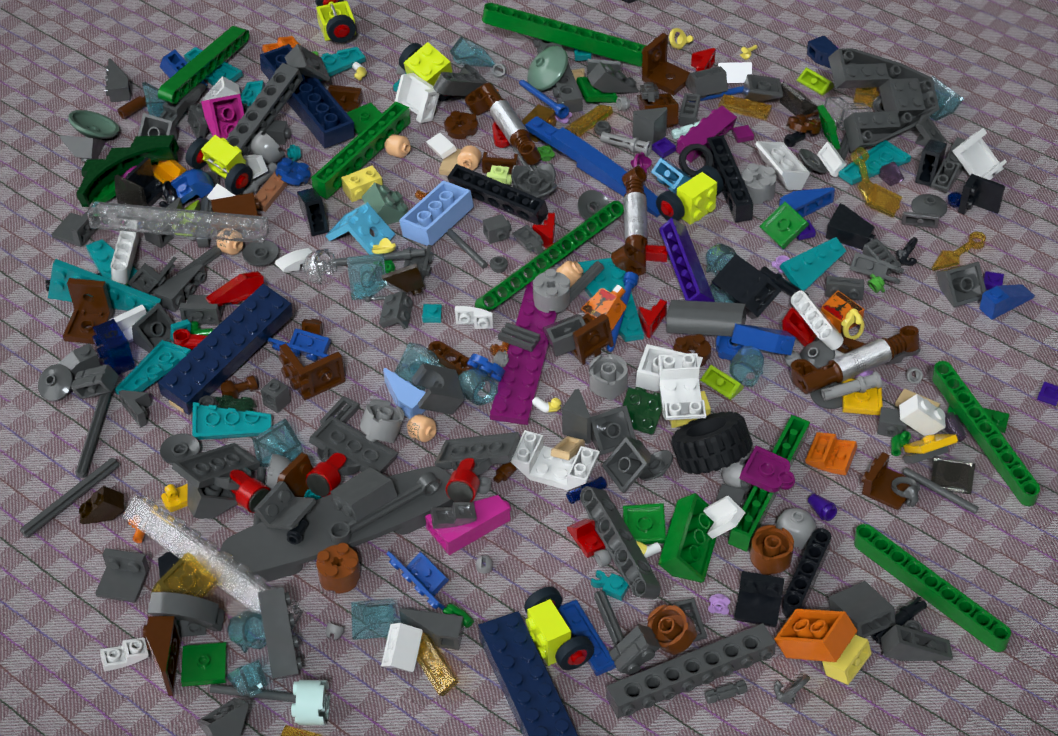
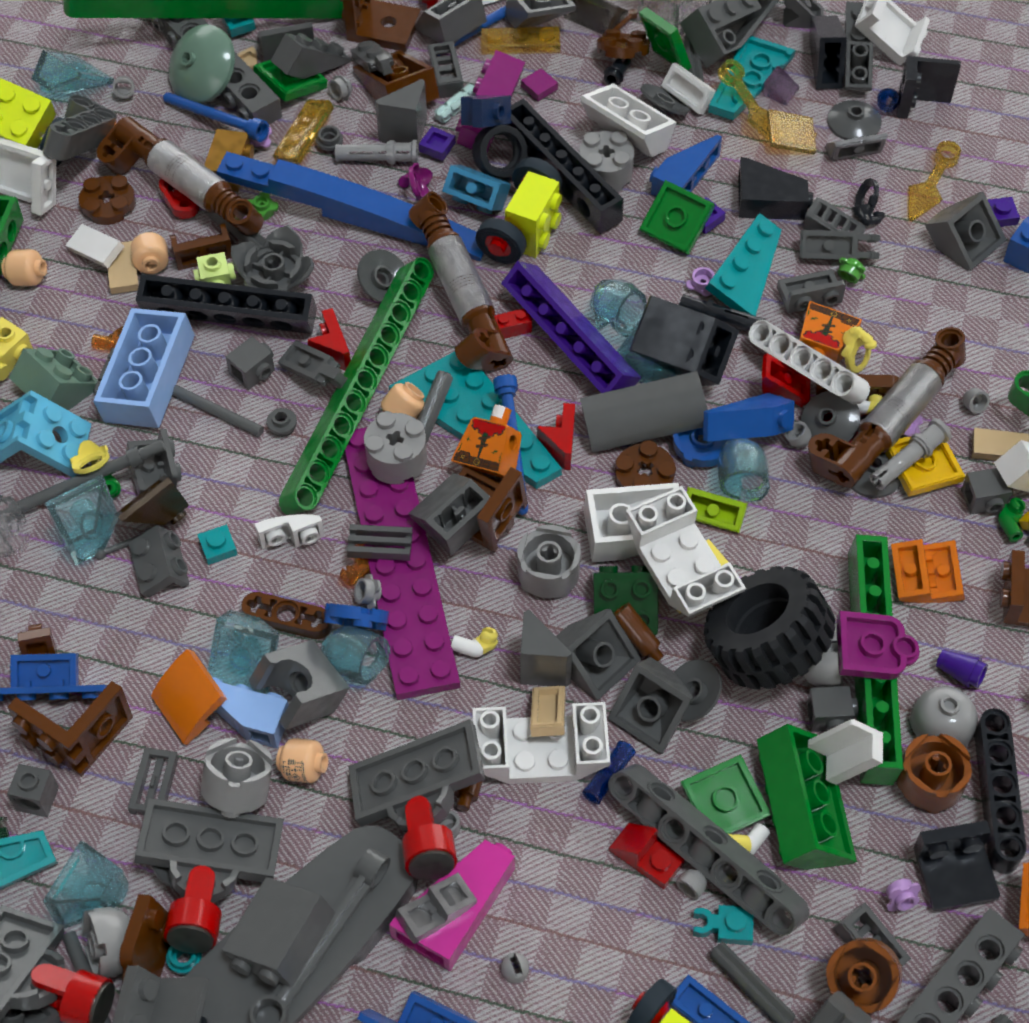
camera: 25 degrees left, 10 degrees up
(377, 376) = (187, 696): none -> orange slope
(639, 426) = (638, 632): none -> reddish brown cylinder
(695, 133) = (485, 110): none -> dark blue brick

